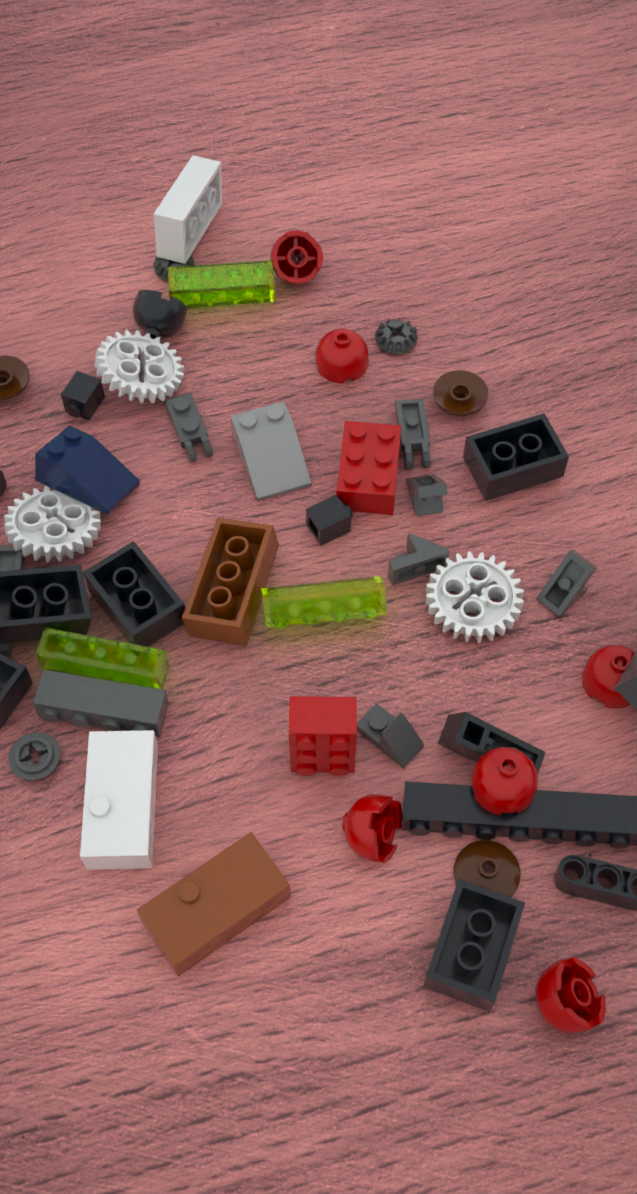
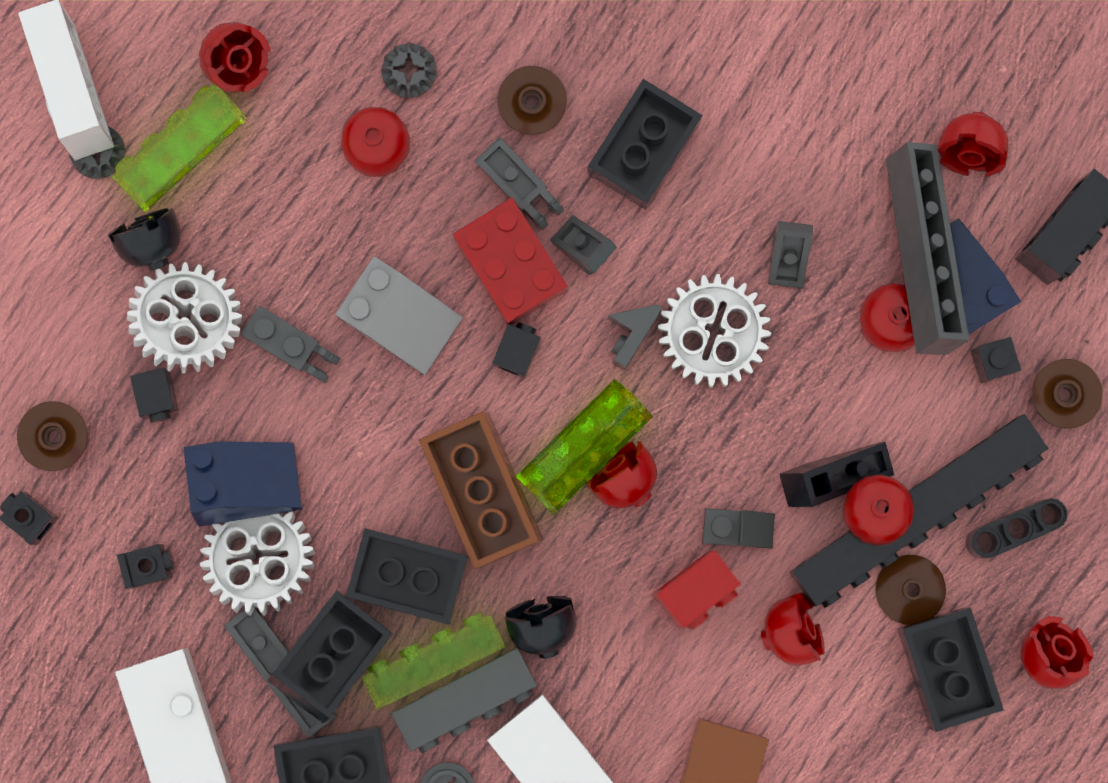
camera: 40 degrees left, 25 degrees up
(195, 693) = (542, 627): none -> black cylinder
(335, 640) = (626, 478): none -> red cylinder

